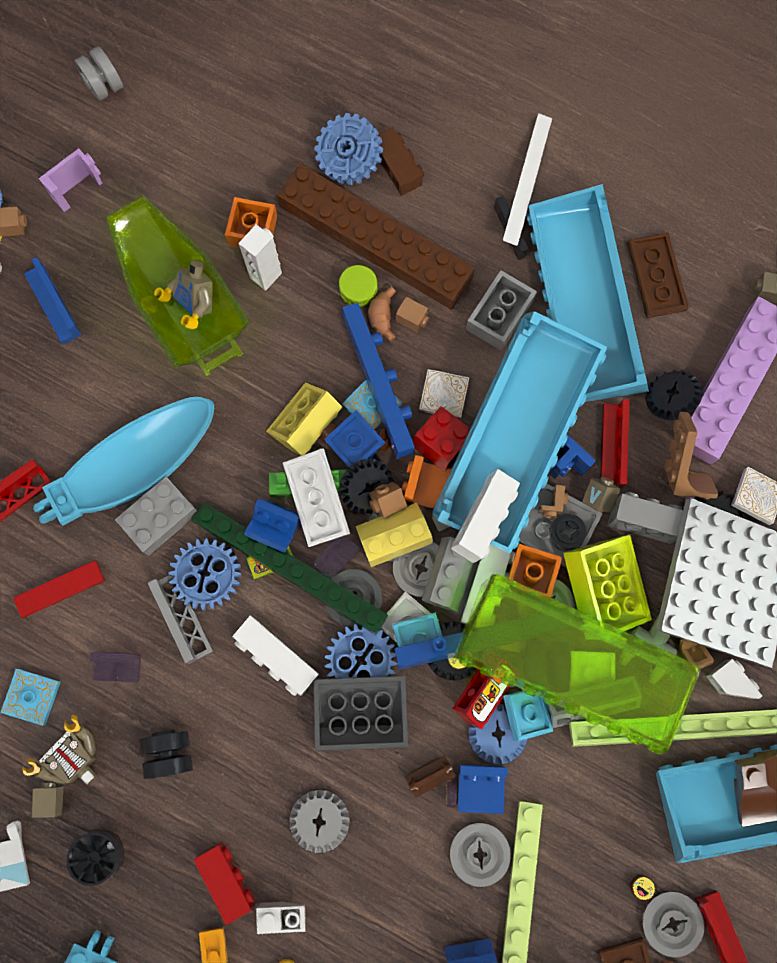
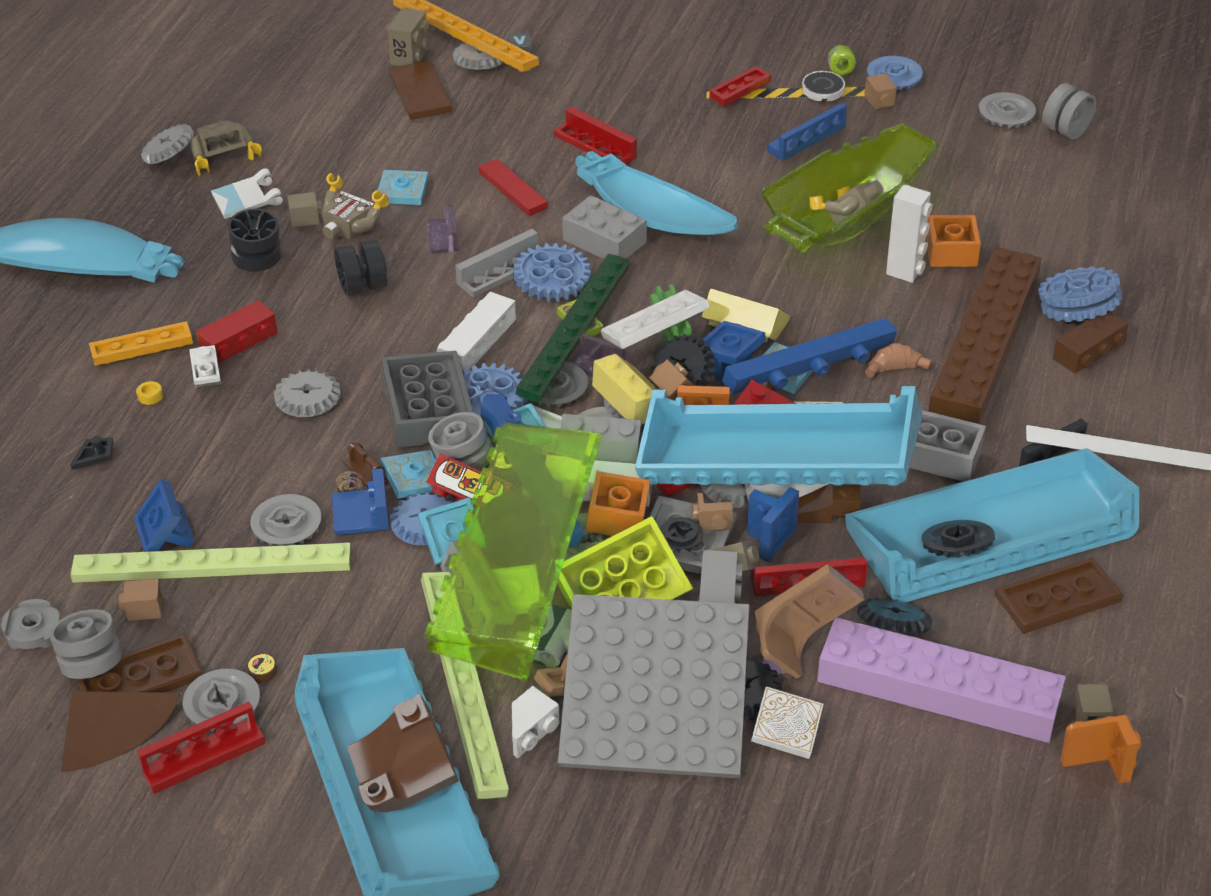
camera: 80 degrees right, 35 degrees down
(63, 111) = (1007, 109): none -> light grey gear
(67, 175) = (942, 111): lavender panel -> none
(273, 525) = (617, 302): blue bracket -> none
(358, 285) = (921, 332): lime head -> none
(412, 315) = (903, 373): medium nougat brick -> none
(428, 705) = (462, 439): none -> light grey wheel
(446, 737) = (409, 472): none -> medium azure plate
(485, 516) = (669, 425): white brick -> none
(617, 317) = (944, 539): none -> black gear

